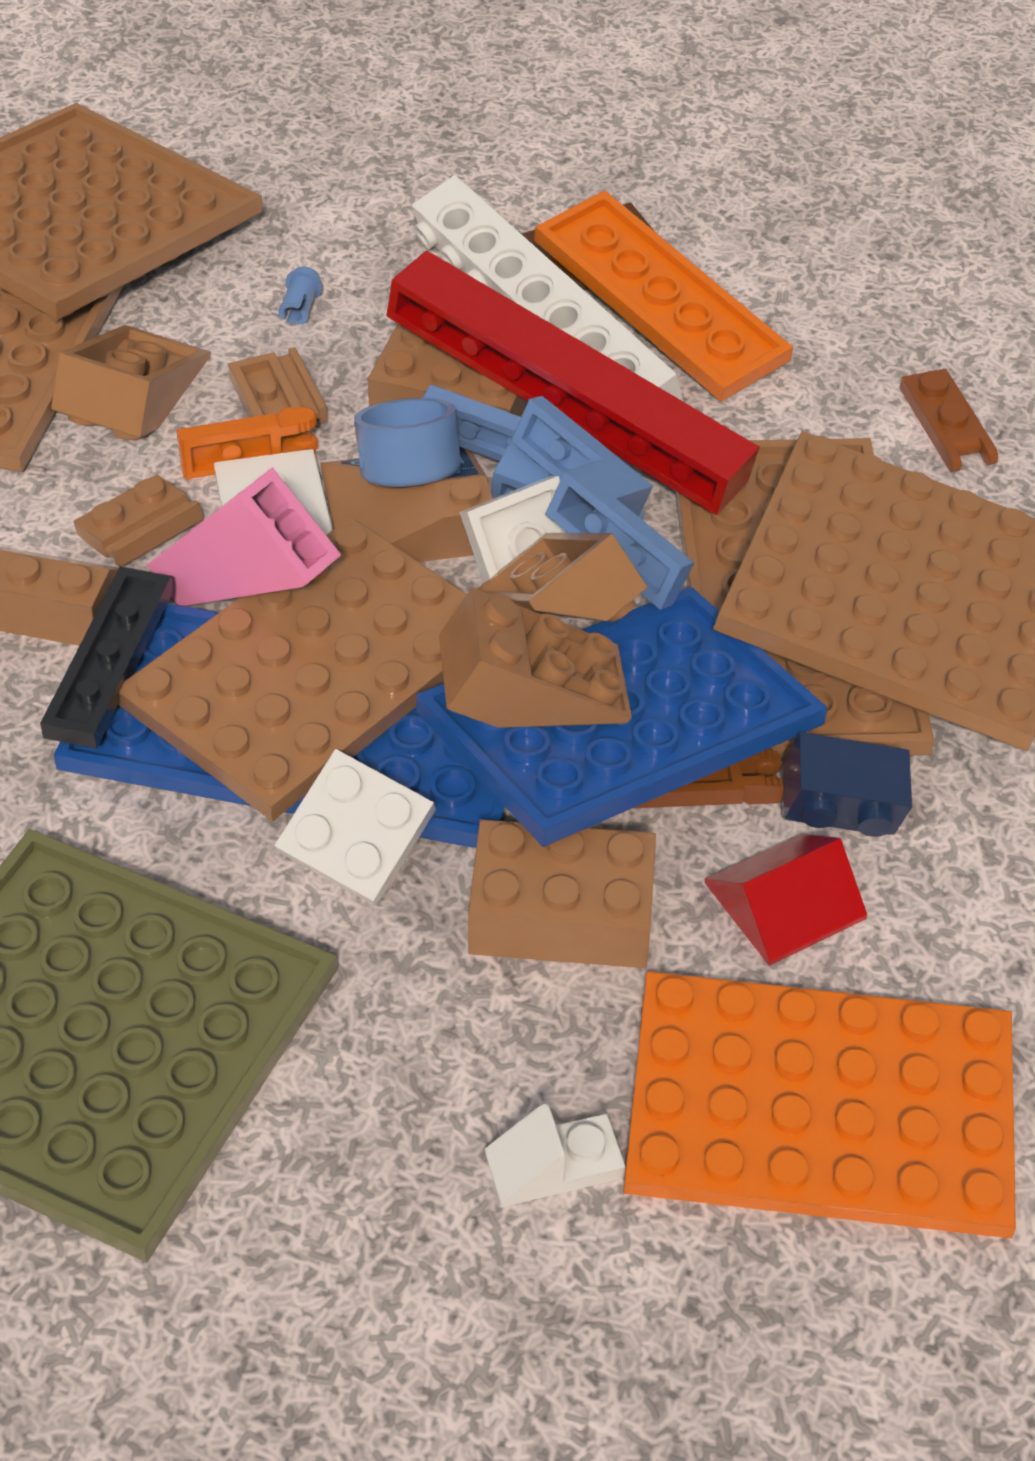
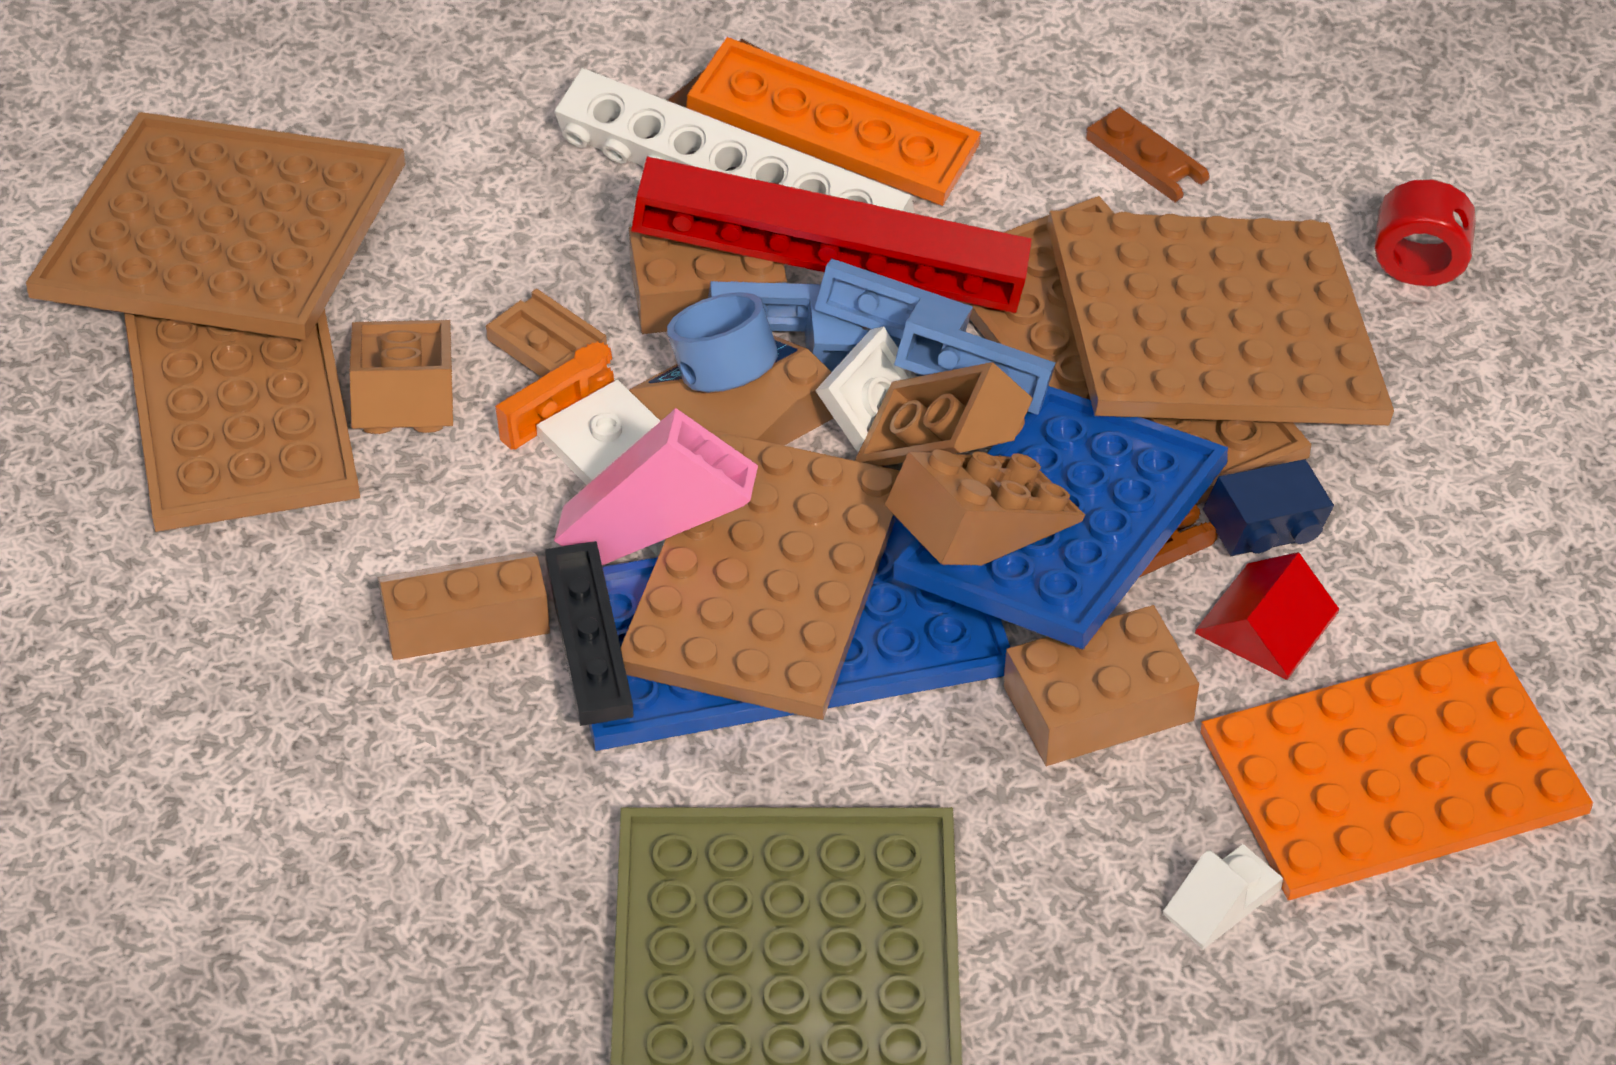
camera: 25 degrees left, 0 degrees up
(138, 520) = (504, 503): medium nougat plate -> none
(302, 287) = (496, 227): medium blue pin -> none
(355, 827) = (897, 697): white plate -> none

